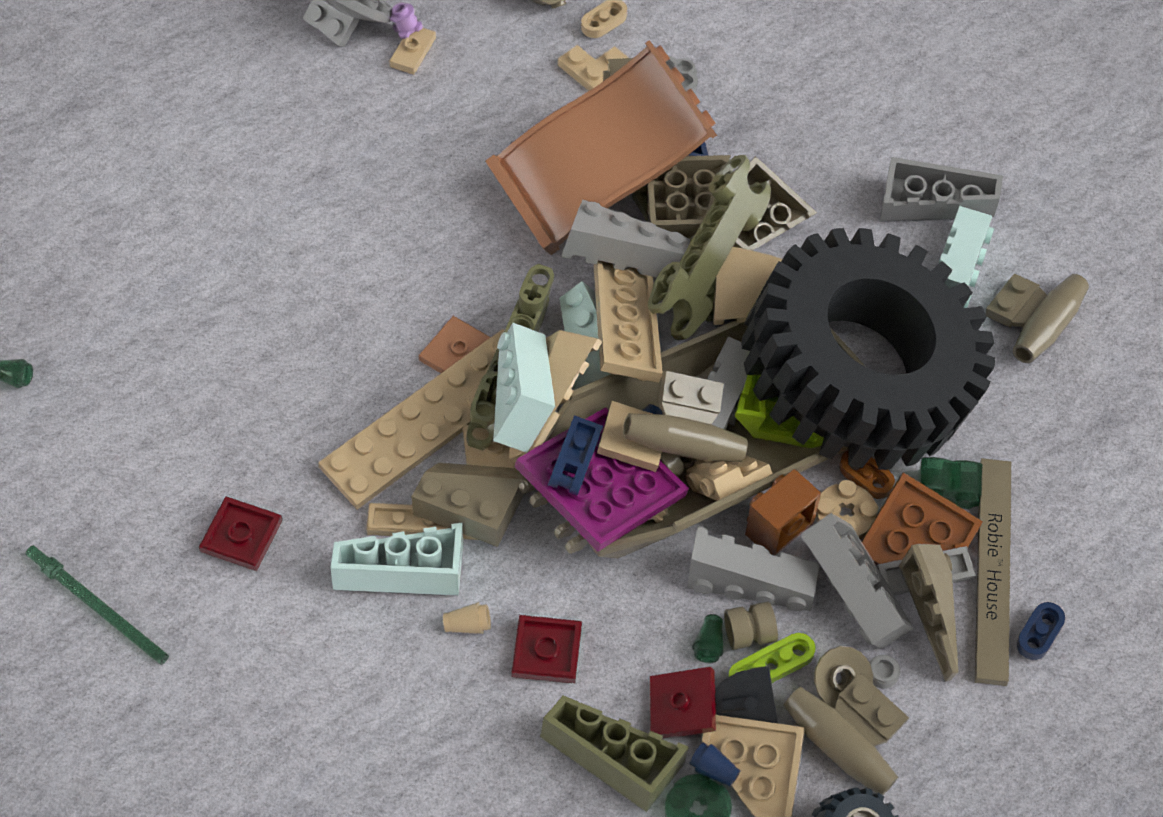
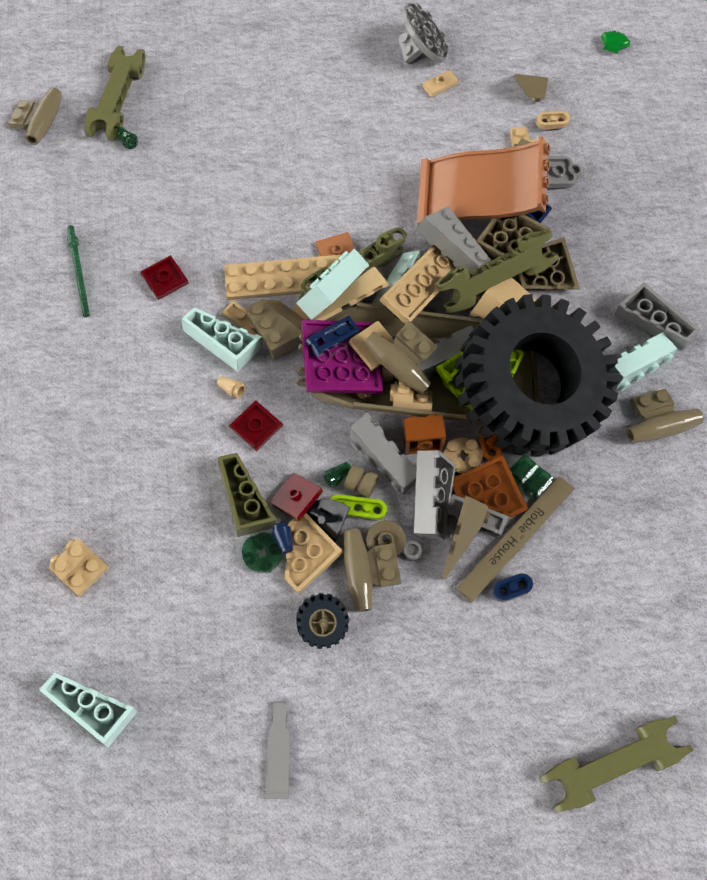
camera: 40 degrees right, 10 degrees up
(405, 20) = (445, 64): lavender brick -> none

